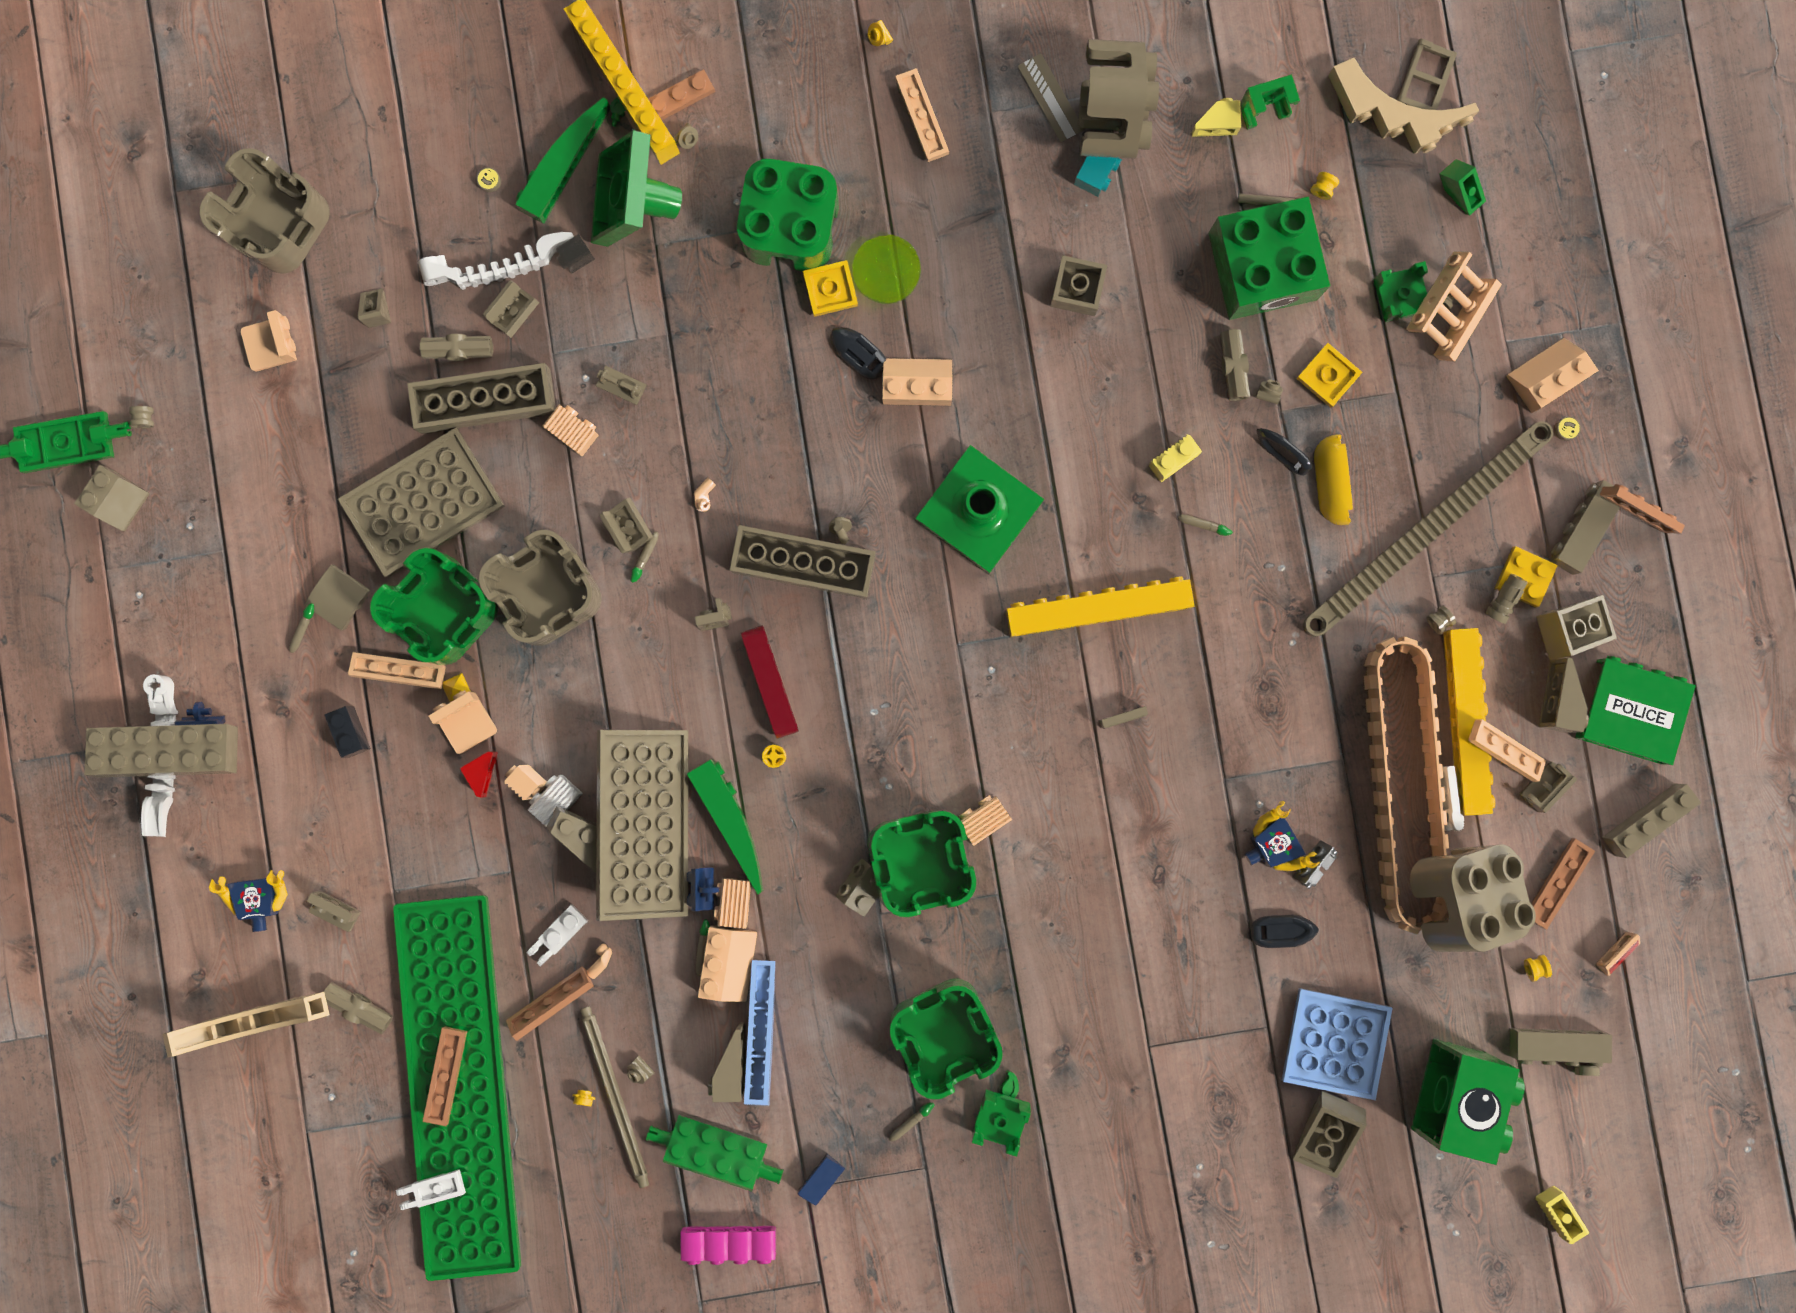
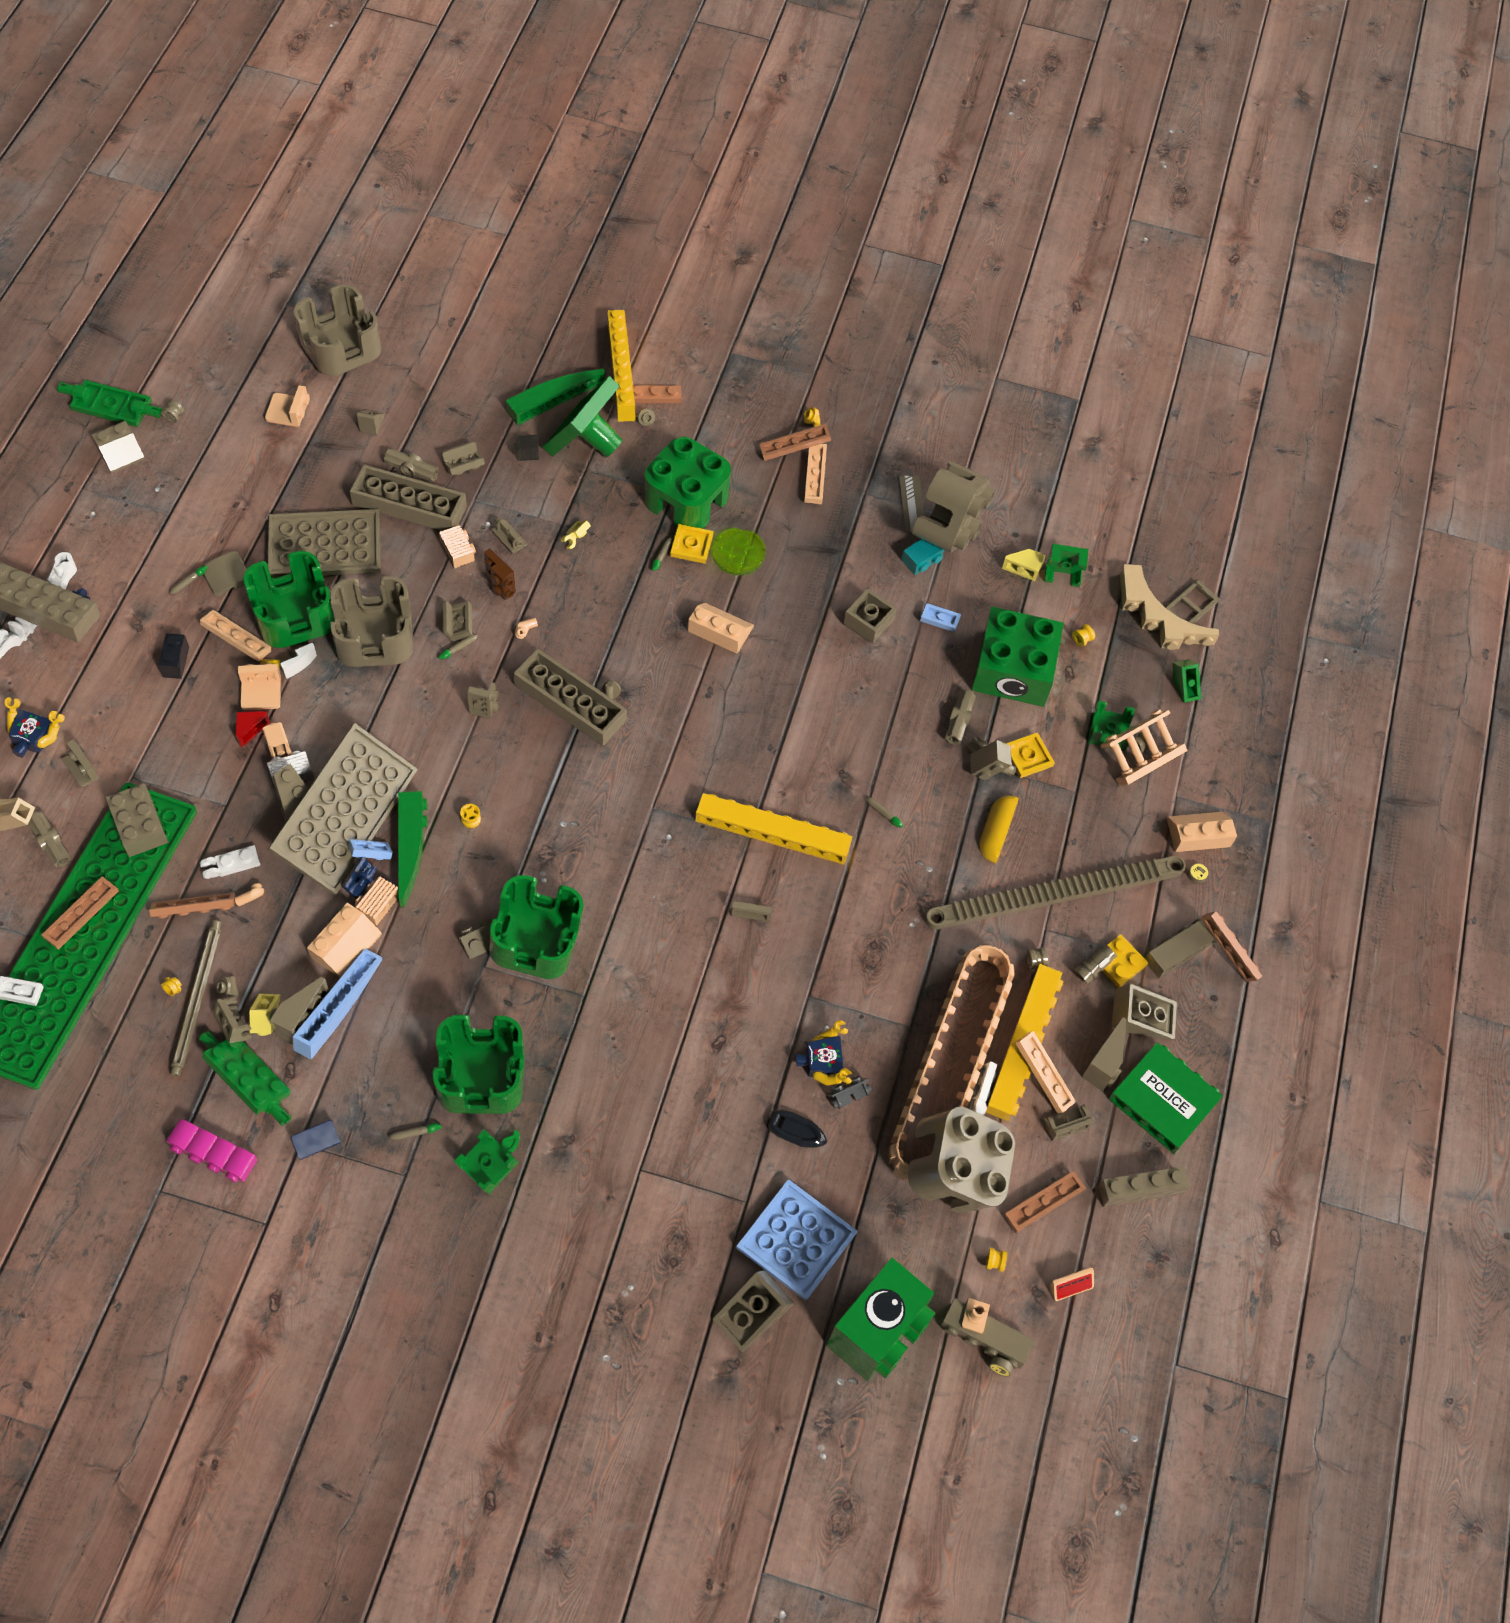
camera: 20 degrees right, 25 degrees down
(435, 269) = (428, 418): white piece -> none
(436, 948) = (136, 820): none -> dark tan brick
(487, 660) = (303, 658): none -> white slope
(488, 179) = (497, 384): tile -> none
(646, 451) = (500, 574): none -> reddish brown plate
(668, 1108) = (230, 1021): none -> dark tan hinge
(691, 341) = (576, 531): none -> light yellow plate
(693, 1080) = (261, 1012): none -> light yellow slope
(694, 852) = (370, 849): none -> light blue plate
(769, 682) = (497, 765): dark red beam -> none
(803, 318) = (657, 562): none -> dark tan piece
(858, 352) = (688, 590): black piece -> none
(880, 85) = (795, 442): none -> nougat plate
(978, 536) = (719, 725): green piece -> none
(984, 819) = (603, 933): light nougat brick -> none
(1155, 243) = (940, 617): none -> light blue plate
(1174, 458) = (884, 755): light yellow brick -> none
(1284, 451) = (970, 789): black piece -> none
(1296, 409) = (992, 760): none -> dark tan brick
(1545, 1037) = (975, 1315): none -> light nougat bracket
(1562, 1215) = (923, 1477): light yellow brick -> none

